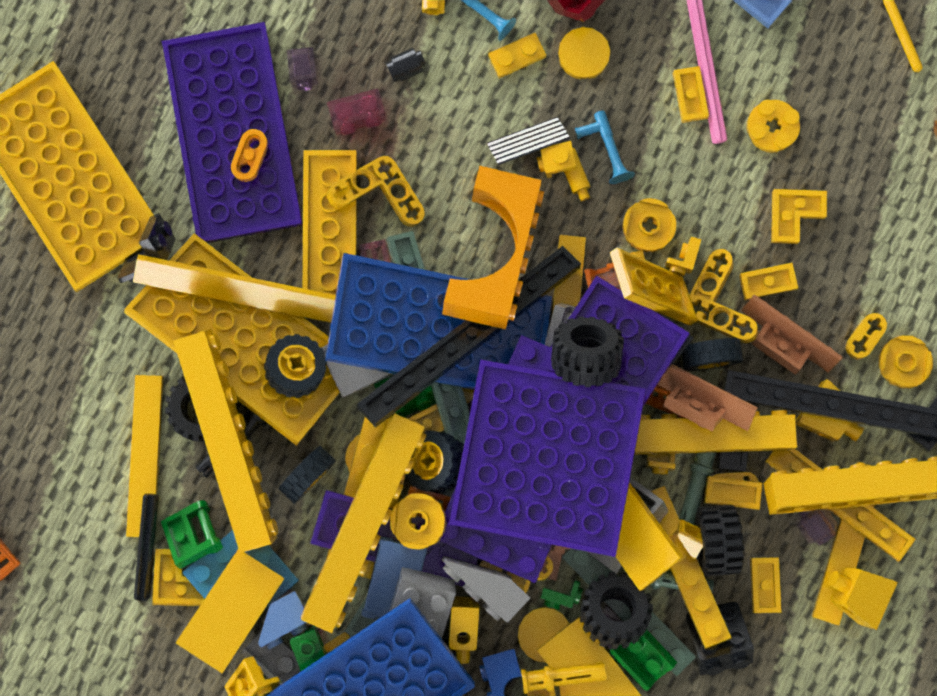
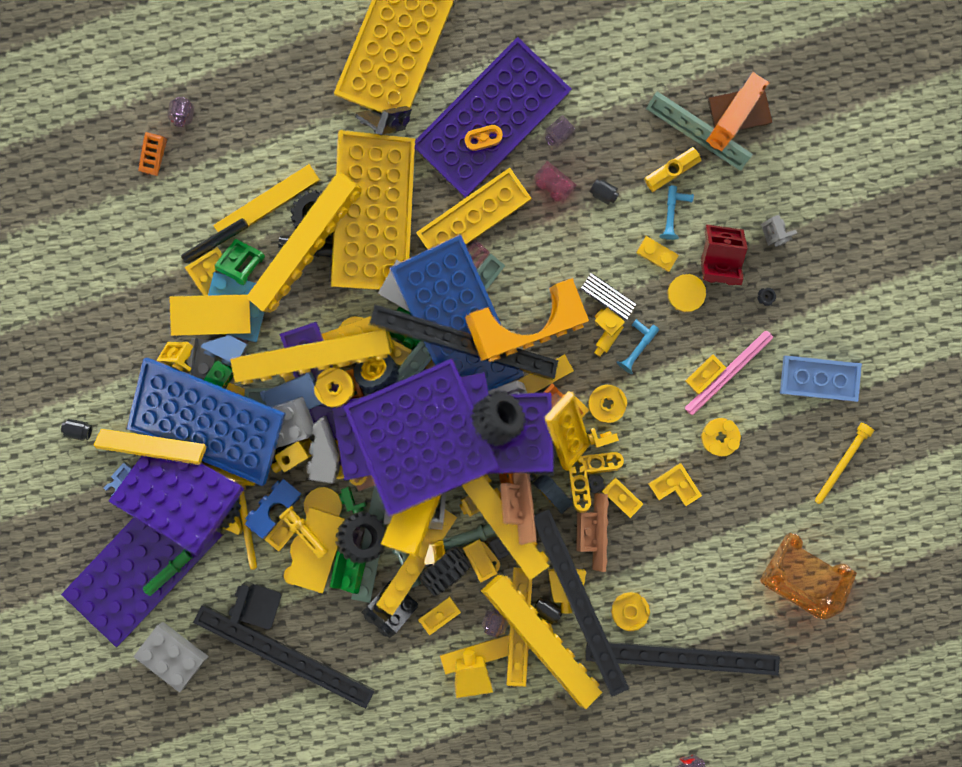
camera: 55 degrees right, 5 degrees up
(234, 288) = (396, 184): yellow tile -> none
(302, 379) = (370, 262): black wheel -> none
(307, 474) = (318, 304): black wheel -> none
(376, 180) = (522, 223): yellow beam -> none
(738, 299) = (600, 485): none -> black plate
(843, 453) = (548, 610): none -> black brick
(861, 332) = (630, 573): yellow beam -> none

